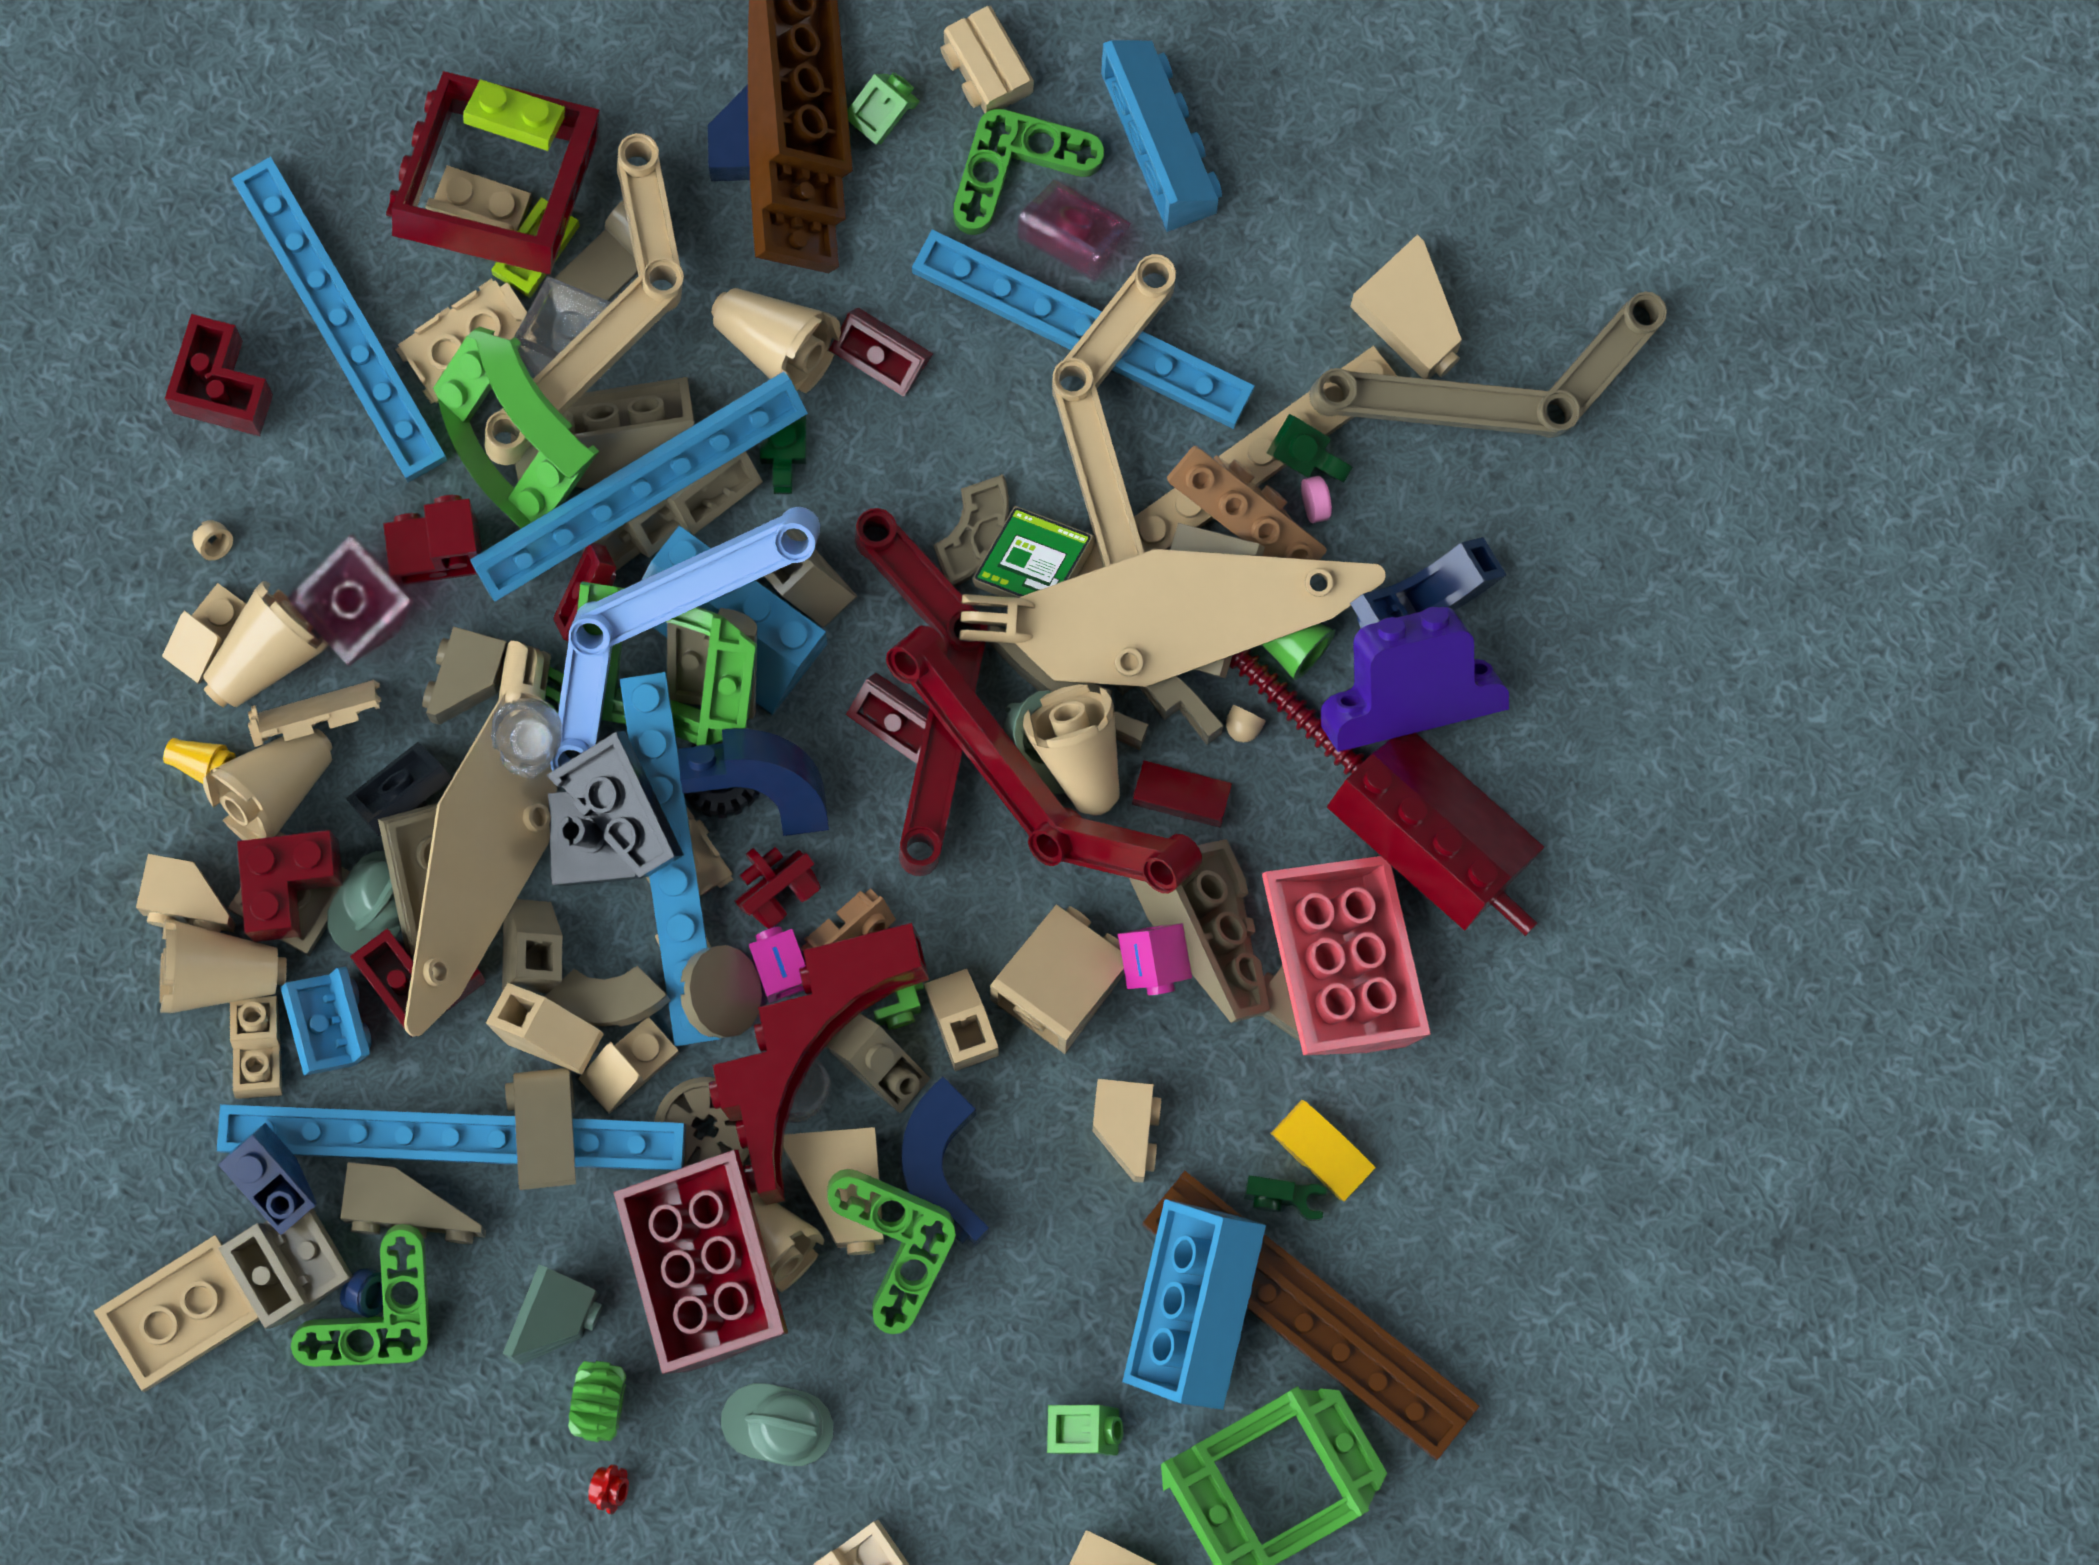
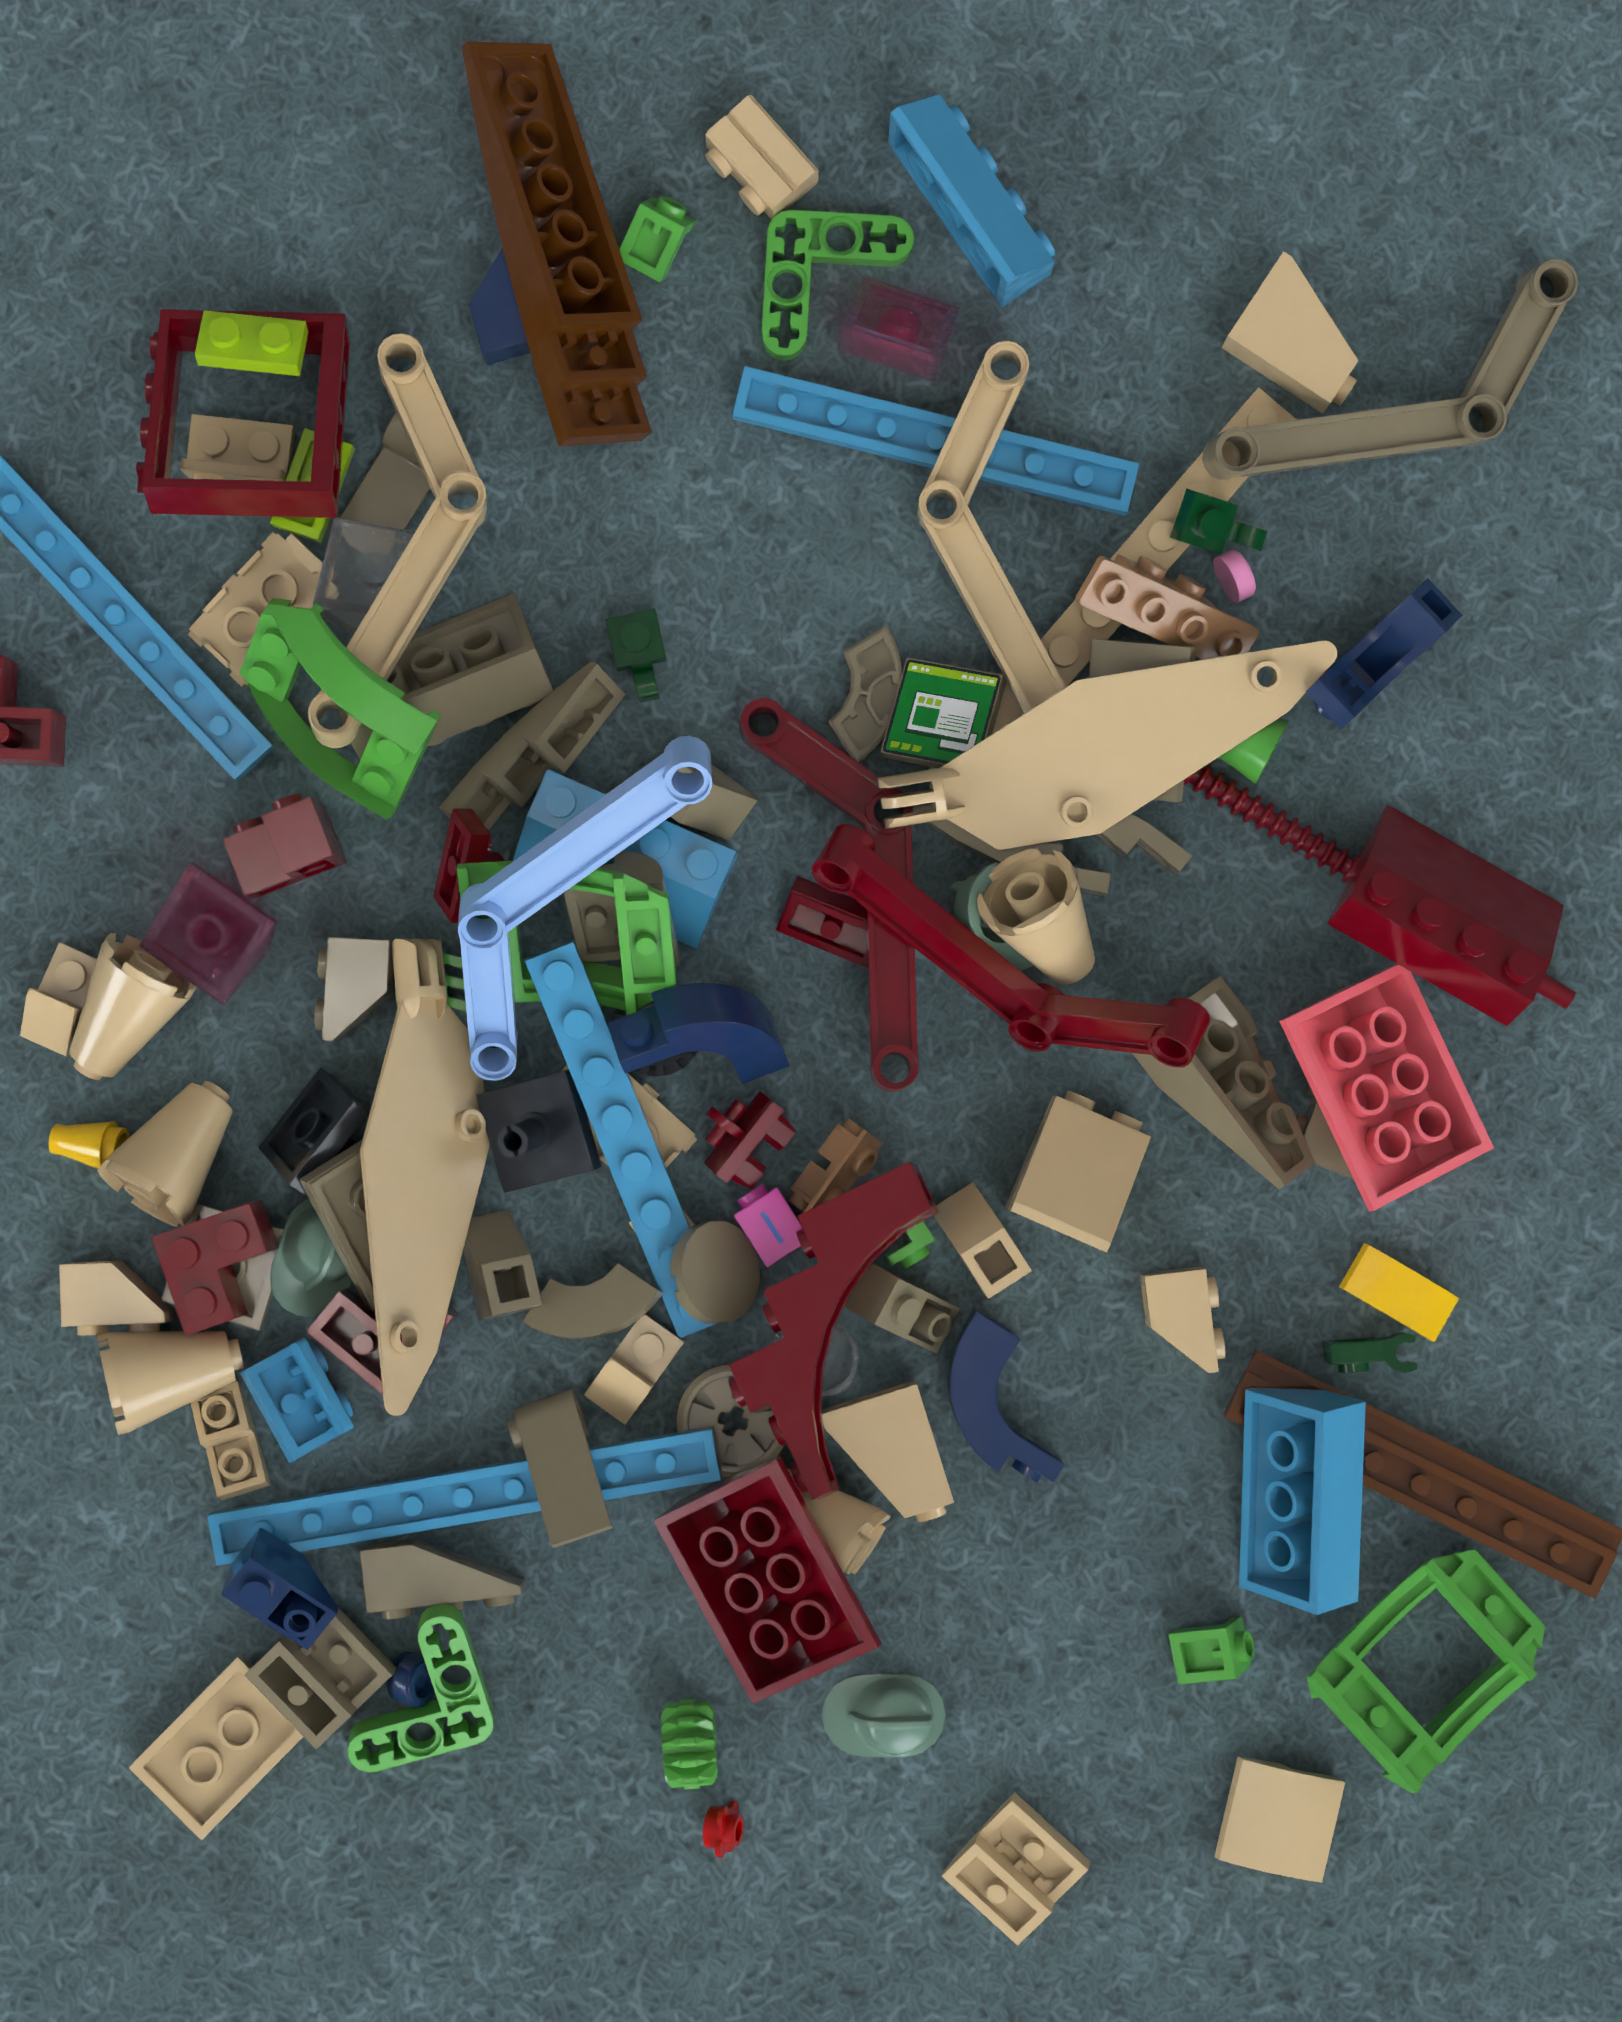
camera: 10 degrees left, 10 degrees up
(219, 547) = (38, 906): tan hinge -> none
(299, 717) = (216, 1056): tan piece -> none
(526, 735) = (438, 1044): clear hair -> none
(543, 1029) = (535, 1358): tan slope -> none
(551, 1316) = (619, 1663): sand green slope -> none
(620, 800) = (557, 1093): wing -> none
(638, 486) = (493, 736): dark azure plate -> none
(778, 335) = (603, 528): tan cone -> none
(880, 351) = (718, 515): dark red slope -> none
(907, 1230) = (978, 1490): bright green beam -> none
(1155, 958) = (1178, 1131): dark pink brick -> none
(1181, 794) = (1160, 935): dark red slope -> none
(1243, 725) = (1210, 845): tan hinge -> none
(1412, 679) = (1389, 761): dark purple brick -> none

